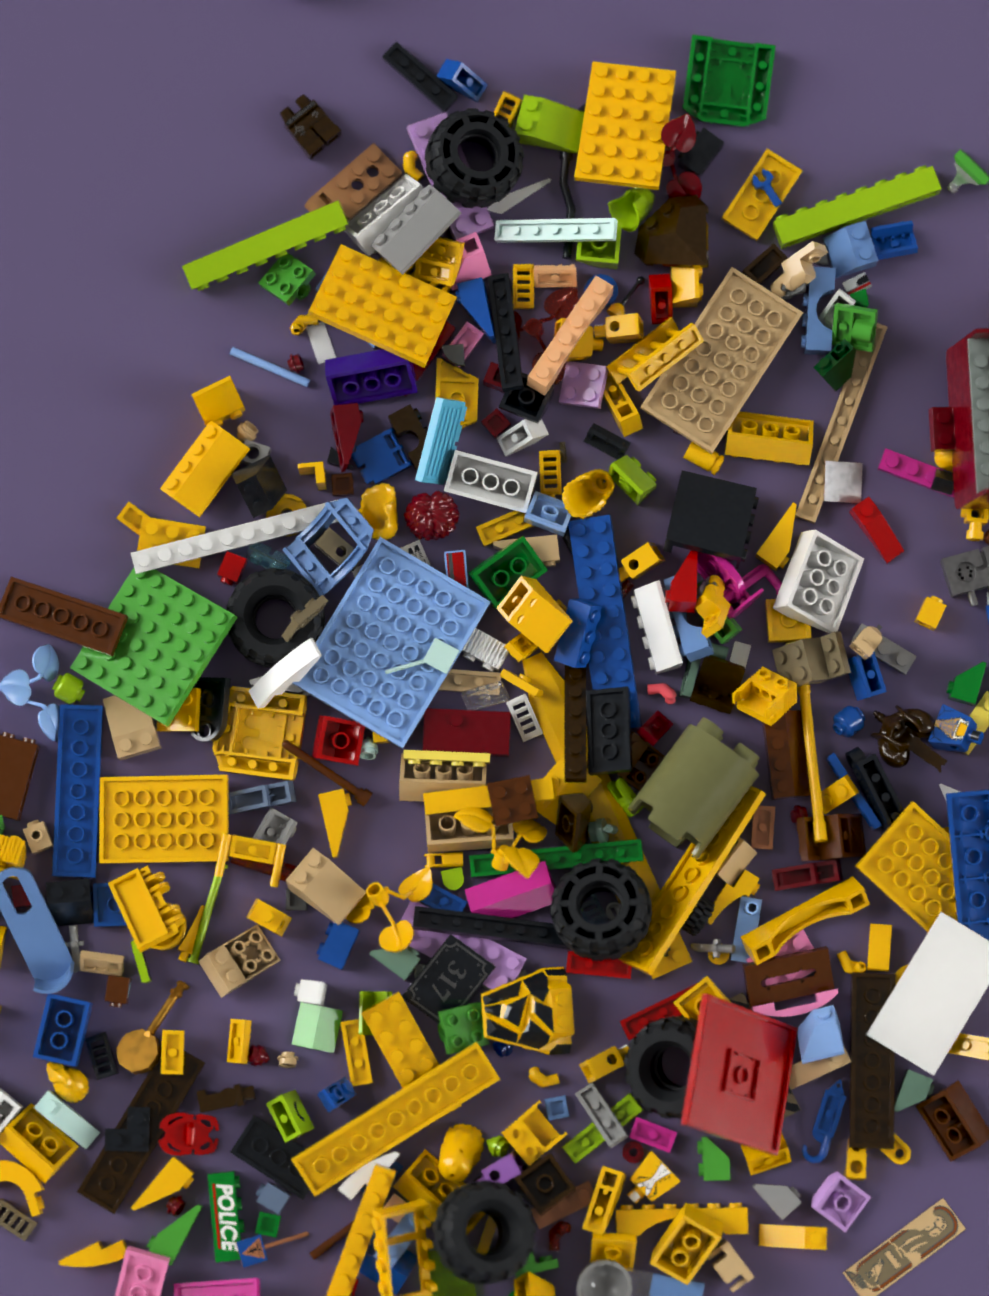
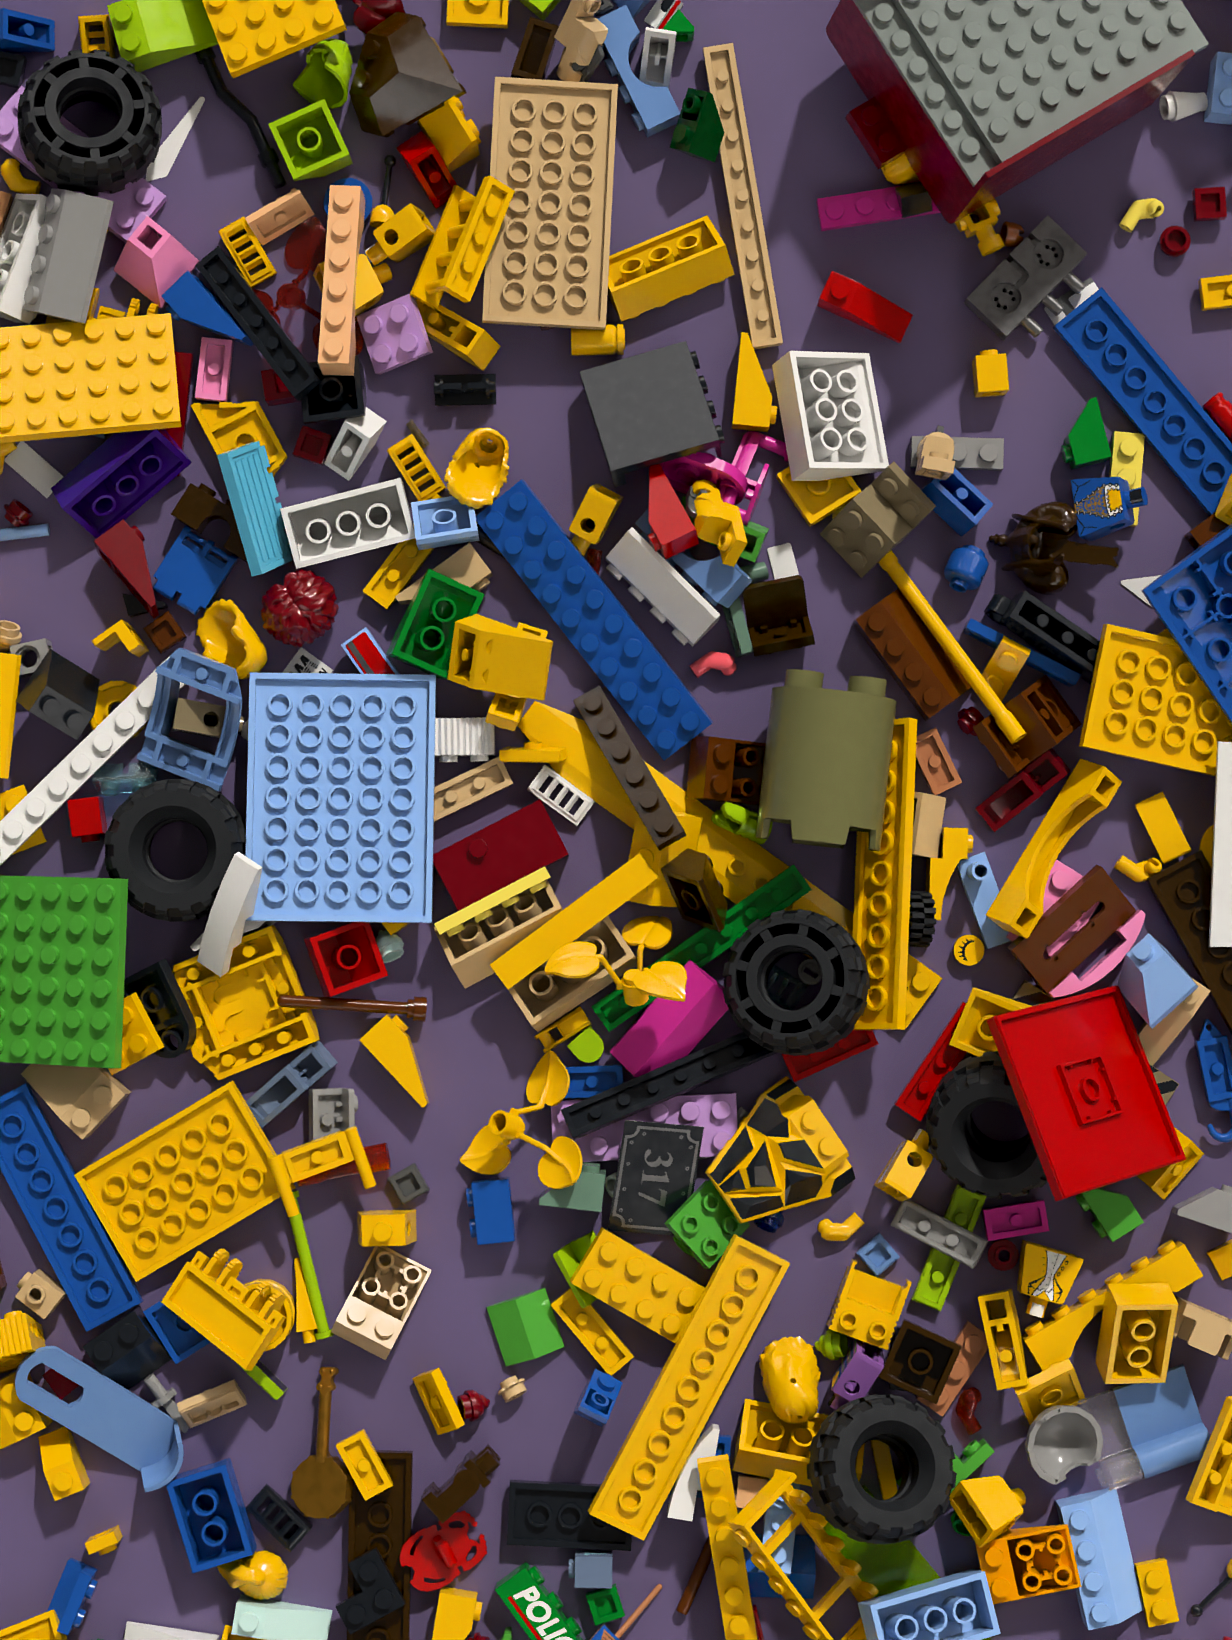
camera: 30 degrees left, 5 degrees up
(118, 990) = (252, 1426): reddish brown brick -> none
(290, 1115) = (556, 1457): lime brick -> none
(301, 619) = (209, 836): dark tan wing -> none
(311, 992) = (494, 1290): white slope -> none
(325, 886) = (434, 1150): tan slope -> none
(438, 656) = (410, 781): light aqua piece -> none
(440, 262) = (124, 280): yellow slope -> none
(454, 354) = (210, 387): dark grey tile -> none
(485, 696) = (497, 796): clear plate -> none
(512, 800) = (607, 910): reddish brown plate -> none
(556, 230) = (247, 156): light aqua plate -> none
(577, 639) = (571, 661): blue brick -> none
(600, 830) = (736, 883): sand green piece -> none
(609, 731) = (677, 753): black plate -> none
(632, 479) = (523, 418): lime slope -> none
(655, 728) = (731, 715): dark red plate -> none
(716, 948) = (963, 945): light grey piece -> none
(766, 696) = (847, 596): yellow piece -> none
(843, 482) = (788, 271): flat silver sticker -> none
(855, 325) = (692, 63): bright green plate -> none

